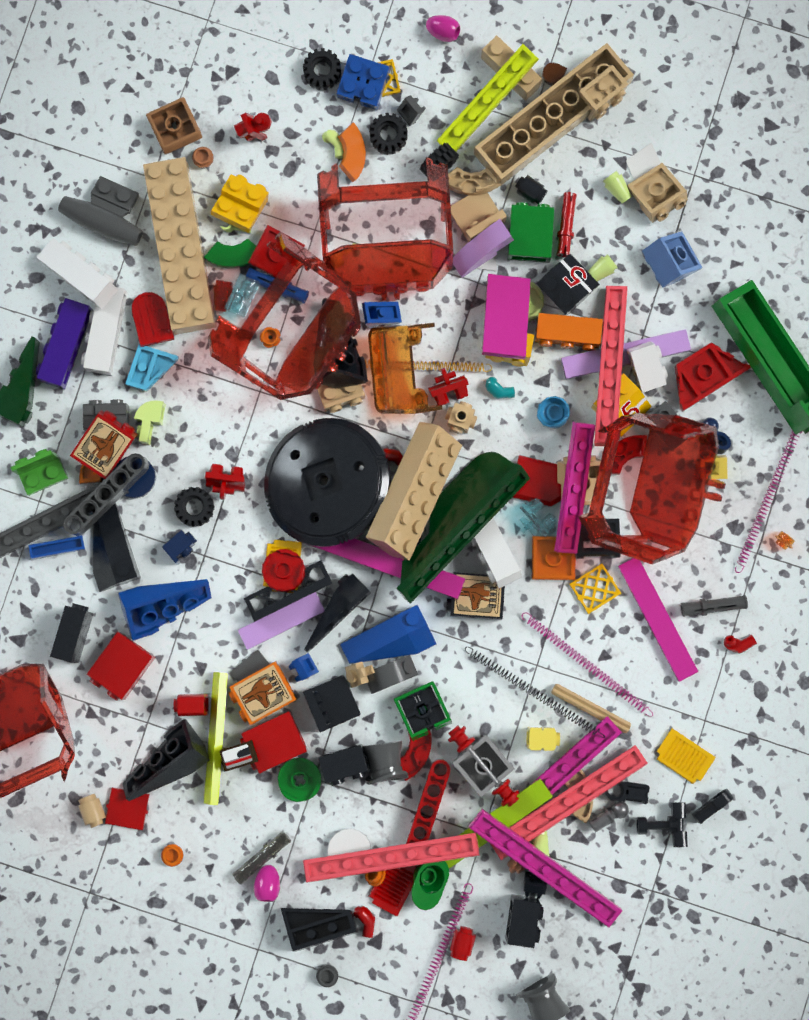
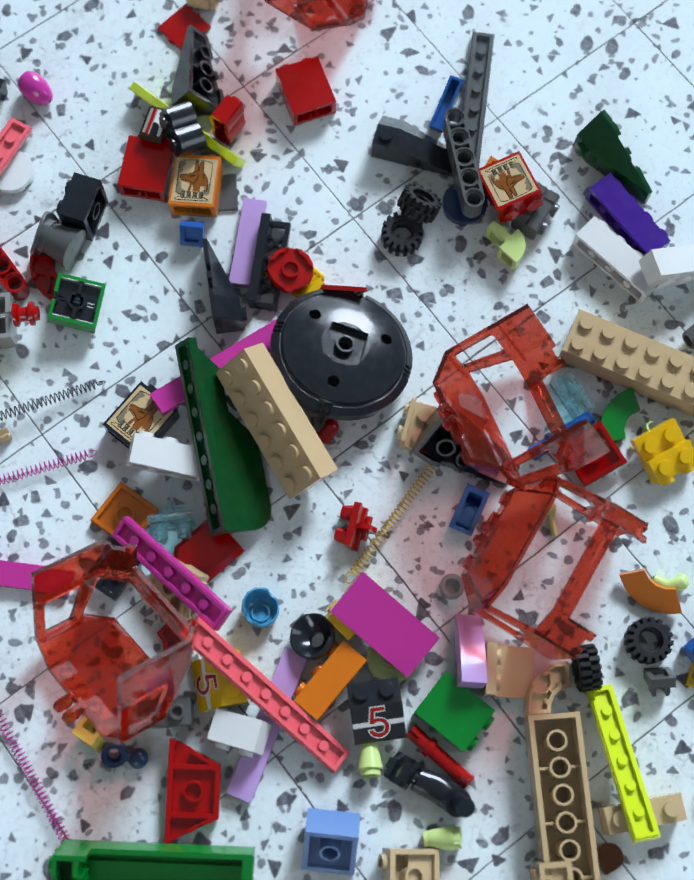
camera: 120 degrees right, 10 degrees down
(40, 471) = (522, 129): bright green bracket -> none
(72, 633) = (360, 64): black brick -> none
(149, 367) = (557, 275): medium azure wing -> none
(151, 319) = (602, 302): red window -> none
(154, 605) = (339, 142): blue wedge -> none
(156, 515) = (419, 203): none -> black tyre
(172, 855) = (118, 35): orange plate -> none
(180, 546) = (374, 198): dark blue brick -> none
(222, 292) = (588, 380): clear red cone -> none
(225, 483) = (401, 281): red hips -> none
(229, 728) = (182, 129): none -> black brick
(265, 854) = (61, 108): clear smoke pin -> none
(269, 331) = (515, 392): orange plate -> none
(272, 517) = (344, 288): none -> red piece
(303, 791) = (106, 158): green plate -> none
(331, 703) = (144, 232): black bracket -> none
(357, 674) = (151, 270): tan plate -> none
(391, 674) = (127, 298): dark grey brick -> none
(394, 369) = (402, 484): clear orange windscreen -> none
(395, 637) = (162, 324): blue wedge -> none
(443, 292) = (451, 586): none -> light grey tile
(457, 425) = (316, 525): tan brick -> none
(497, 390) = (320, 571): teal arm -> none
(531, 189) = (499, 744): black brick -> none
(552, 371) = (303, 632): none -> black piece
(588, 208) = (429, 784): none -> black piece
(609, 580) = (49, 552): yellow window -> none

